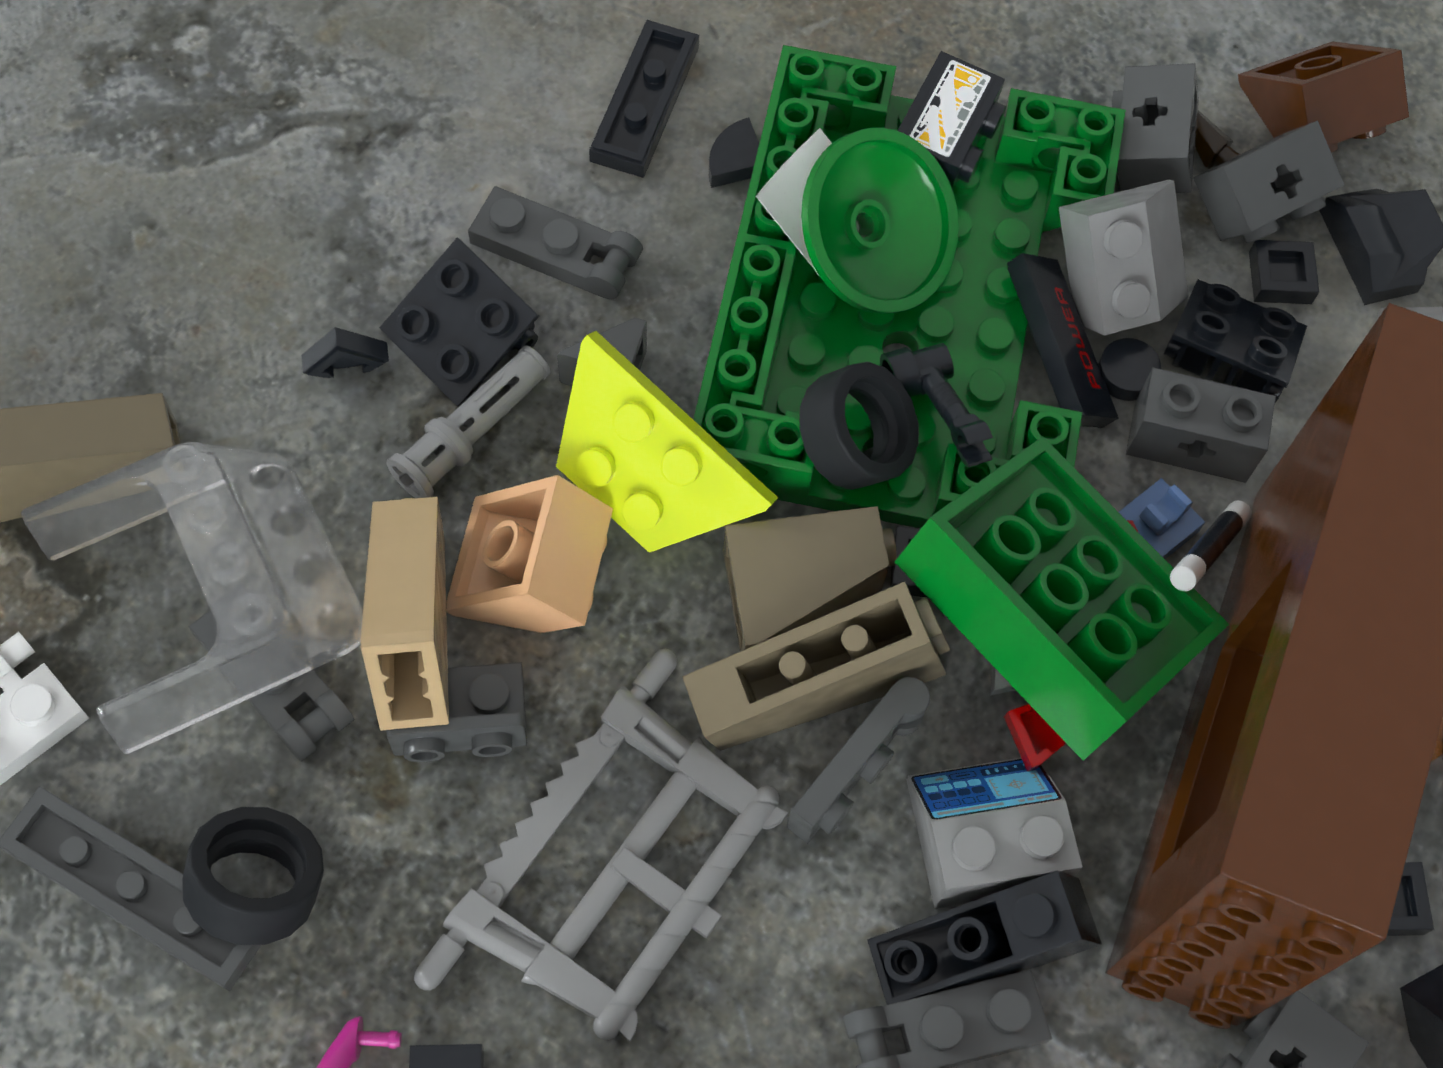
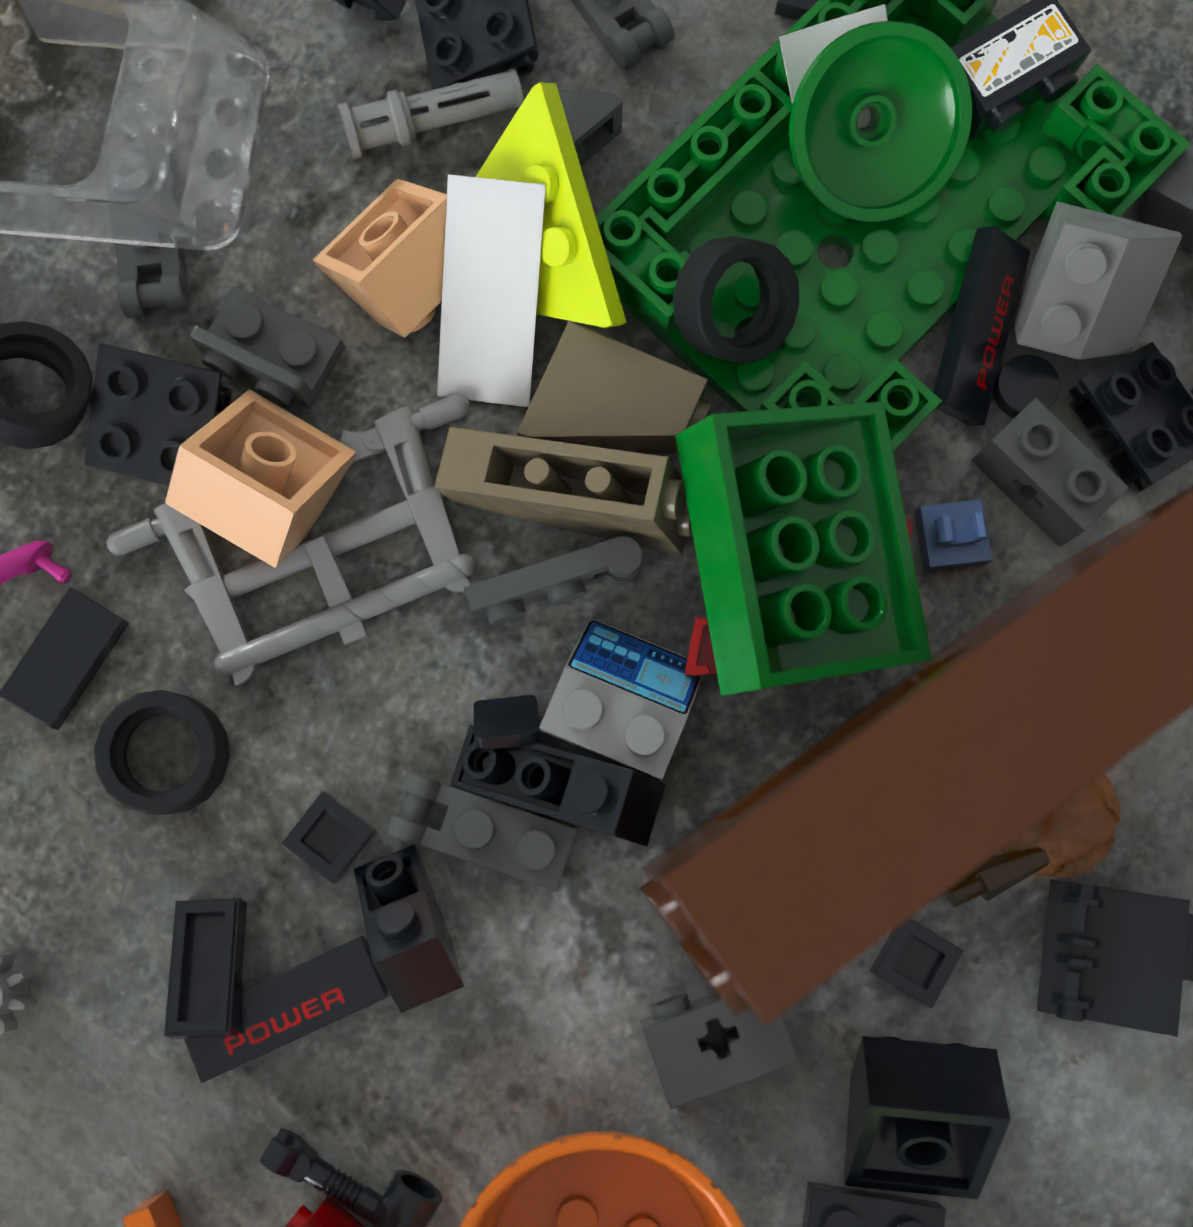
camera: 35 degrees right, 15 degrees up
(390, 837) = (147, 410): none -> black hinge
(406, 614) = (257, 240): tan slope -> none
(535, 828) = (258, 476): none -> light nougat slope
(639, 540) = (490, 289): none -> white sticker
(903, 912) = (506, 722): none -> black piece
(928, 373) = (827, 285): black brick -> none
(1210, 546) = (971, 583): bar -> none

